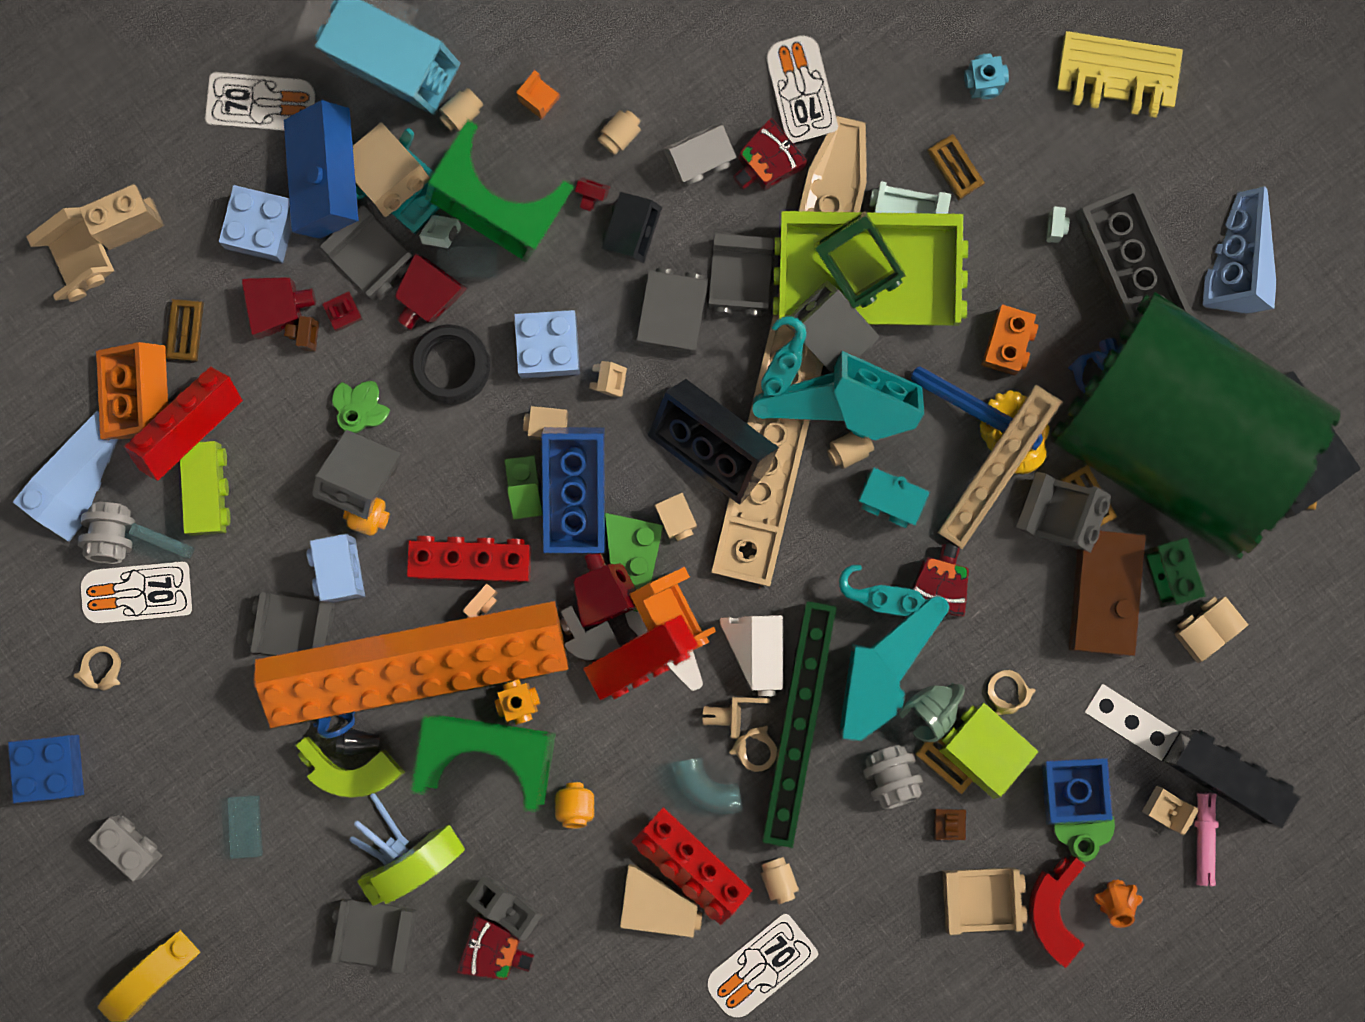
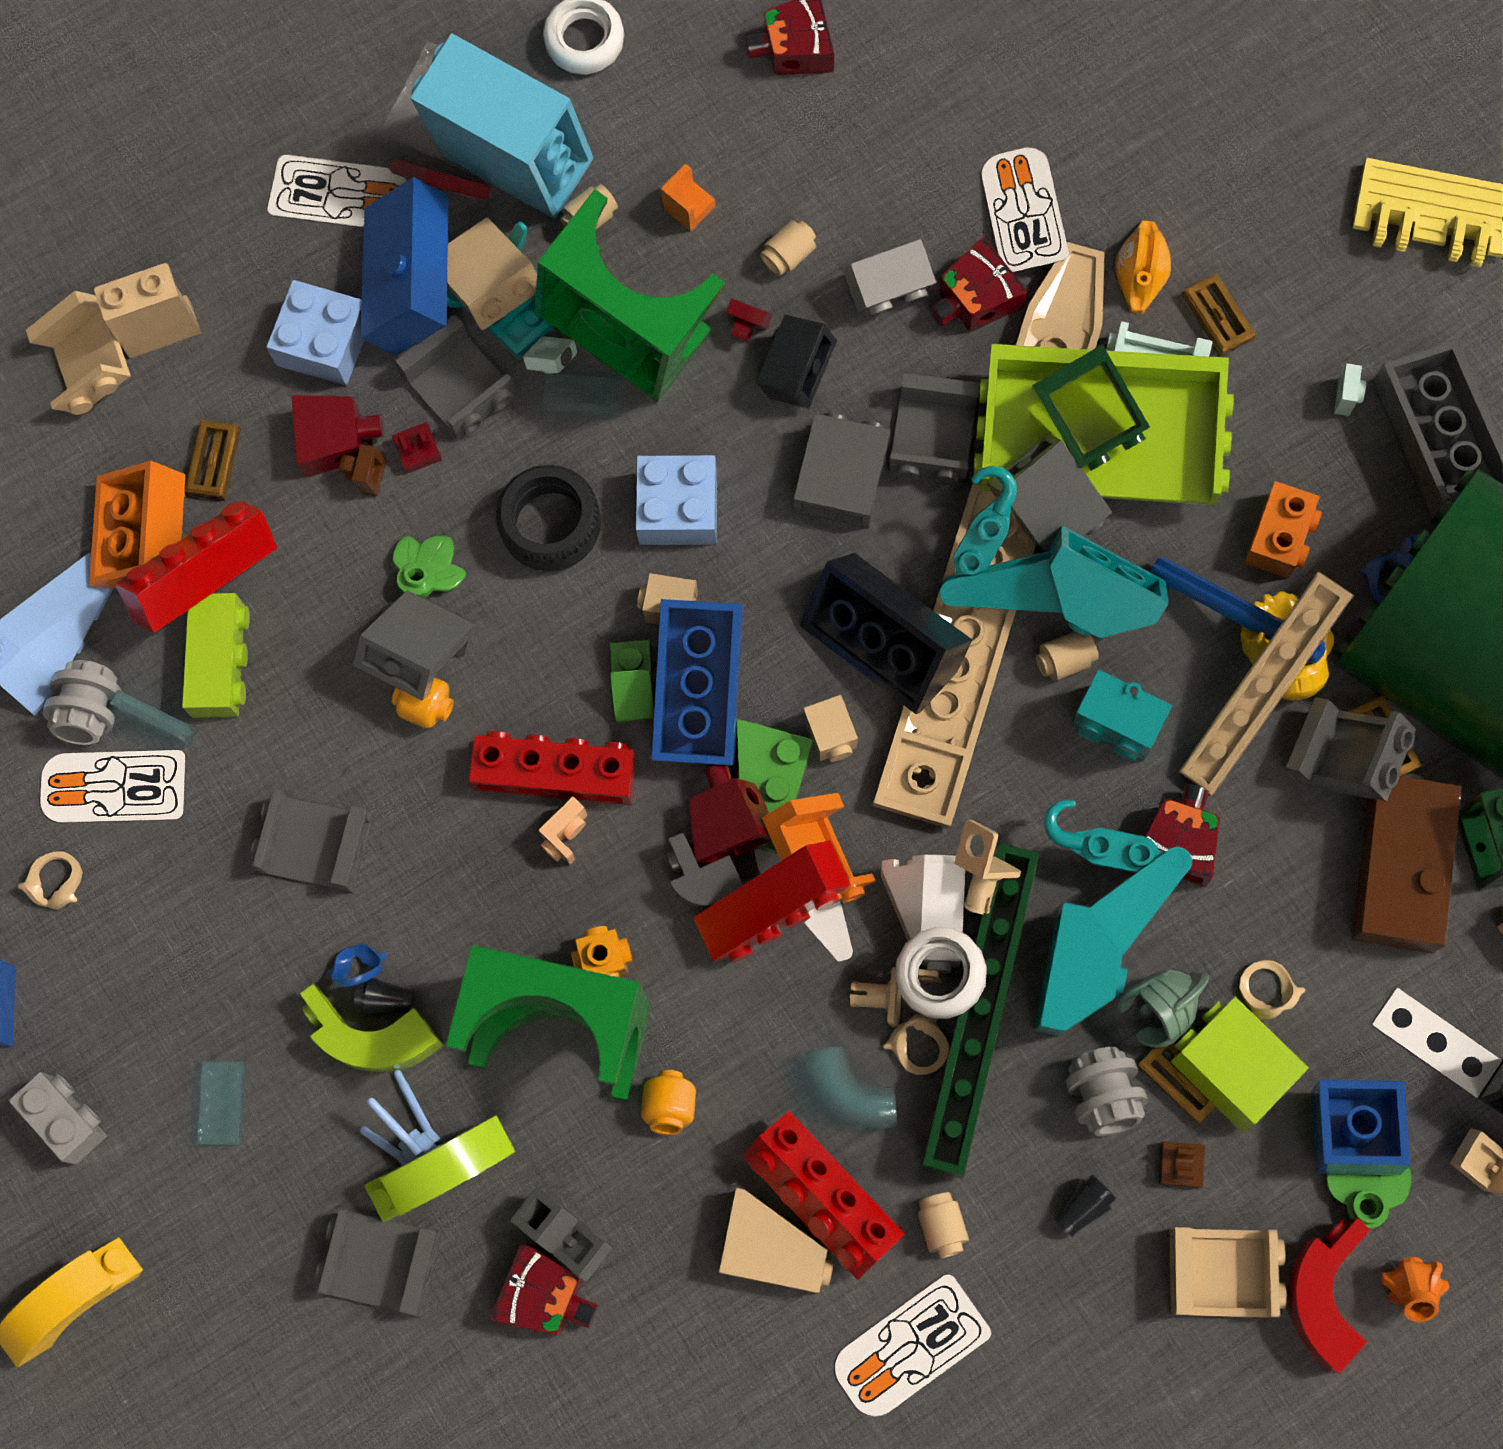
camera: 10 degrees right, 10 degrees down
(336, 569) = (376, 764): light blue brick -> none
(340, 92) = (440, 179): none -> dark red tile
(411, 664) = (463, 895): orange brick -> none
(426, 292) = (526, 427): dark red torso -> none
(610, 378) = (755, 548): tan tile -> none
(744, 708) = (920, 947): none -> white wheel
(796, 625) = (985, 869): none -> tan bracket
(882, 858) = (1086, 1204): none -> black cone
(895, 130) = (1143, 266): none -> light orange hat
(982, 85) = (1262, 204): medium azure brick -> none

